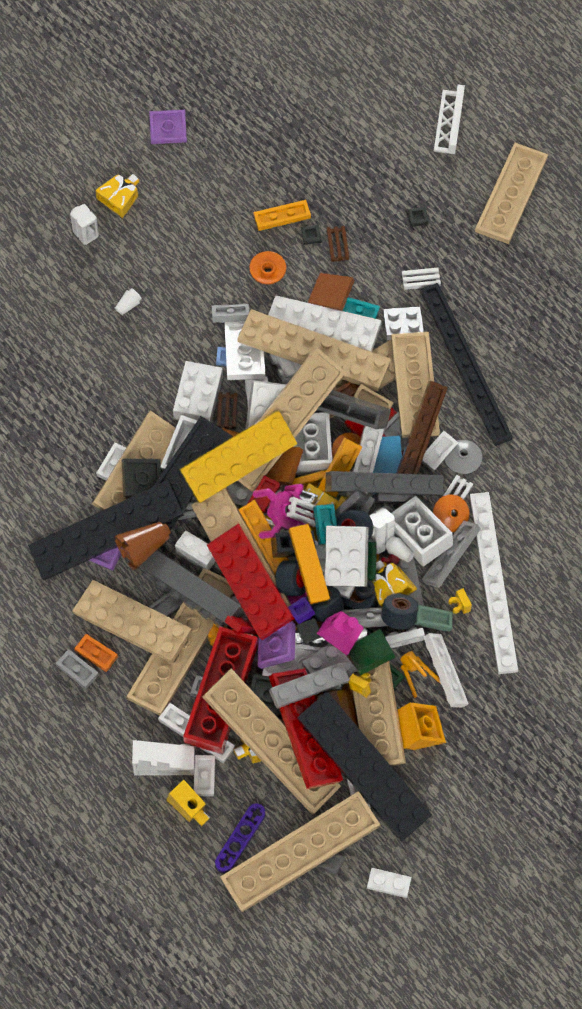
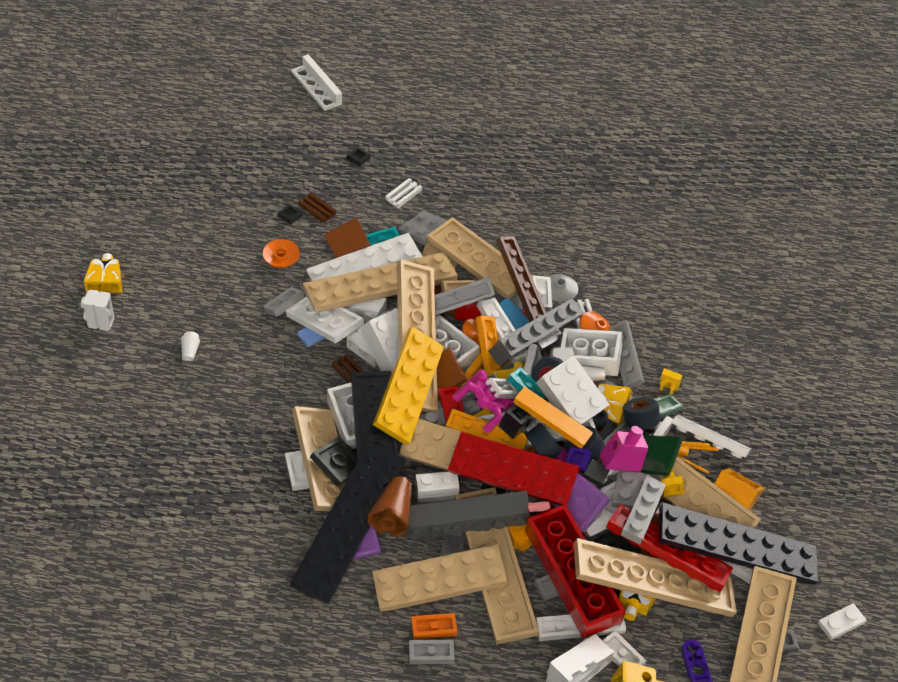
camera: 45 degrees left, 15 degrees down
(168, 126) = (98, 209): medium lavender tile -> none
(198, 391) = (315, 371): white brick -> none
(282, 215) = (254, 213): light orange plate -> none
(466, 364) = (497, 225): black plate -> none
(494, 584) = (678, 357): white plate -> none
(511, 193) = (411, 103): tan plate -> none

